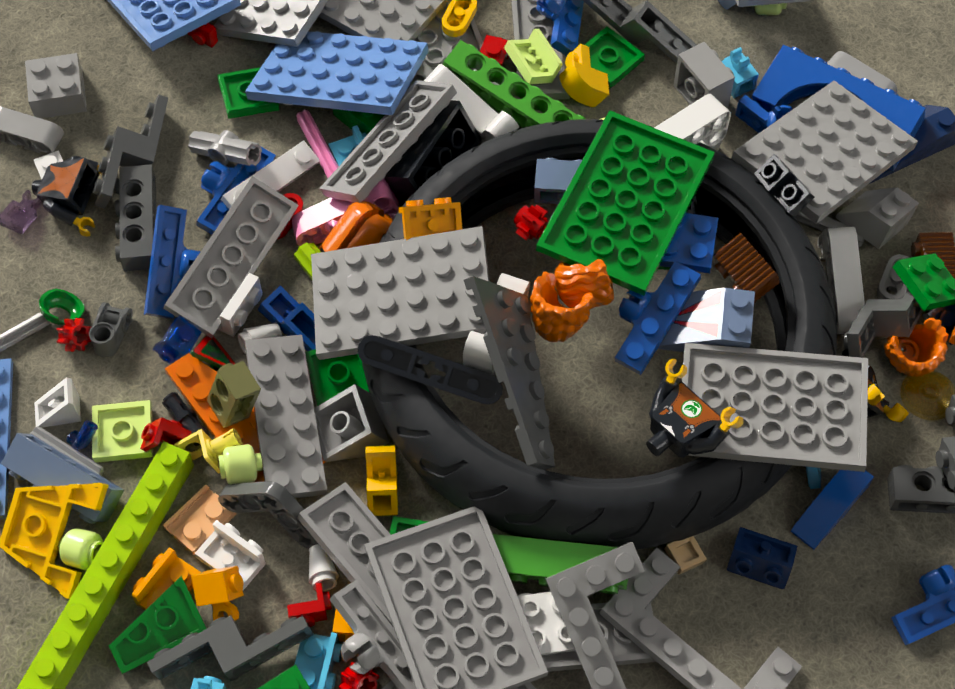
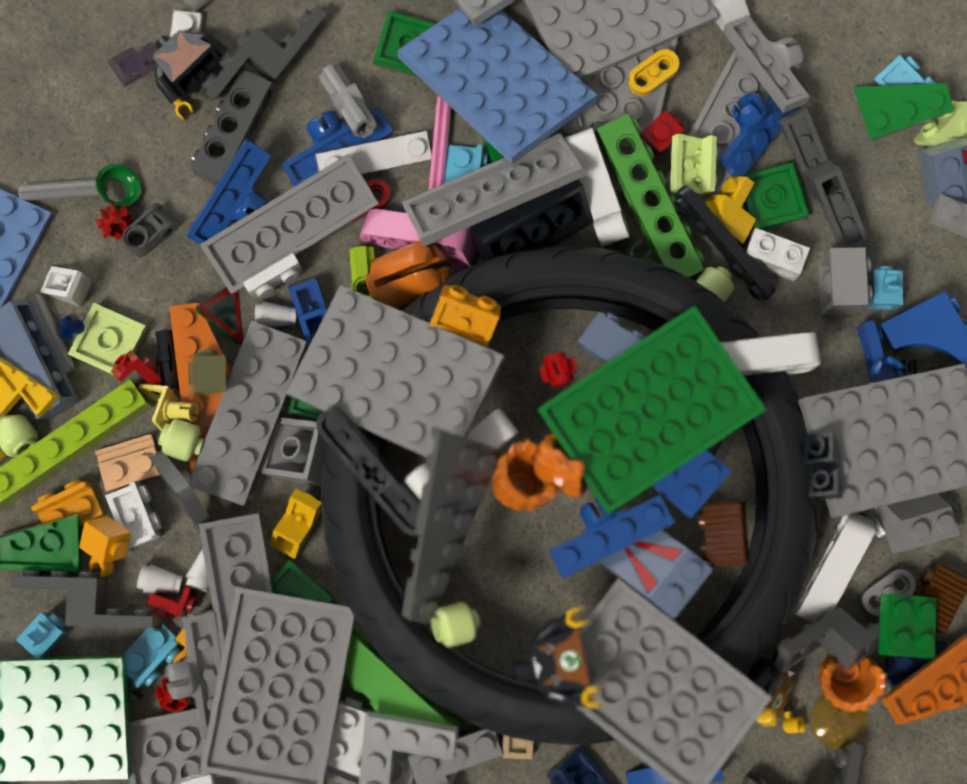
camera: 30 degrees right, 20 degrees up
(177, 340) = (199, 281): clear blue bracket -> none
(279, 597) = (158, 580): none -> white cone
(576, 451) = (455, 624): none -> yellowish green head
(583, 94) = (708, 224): none -> black piece
(638, 91) = (776, 254): none -> white brick

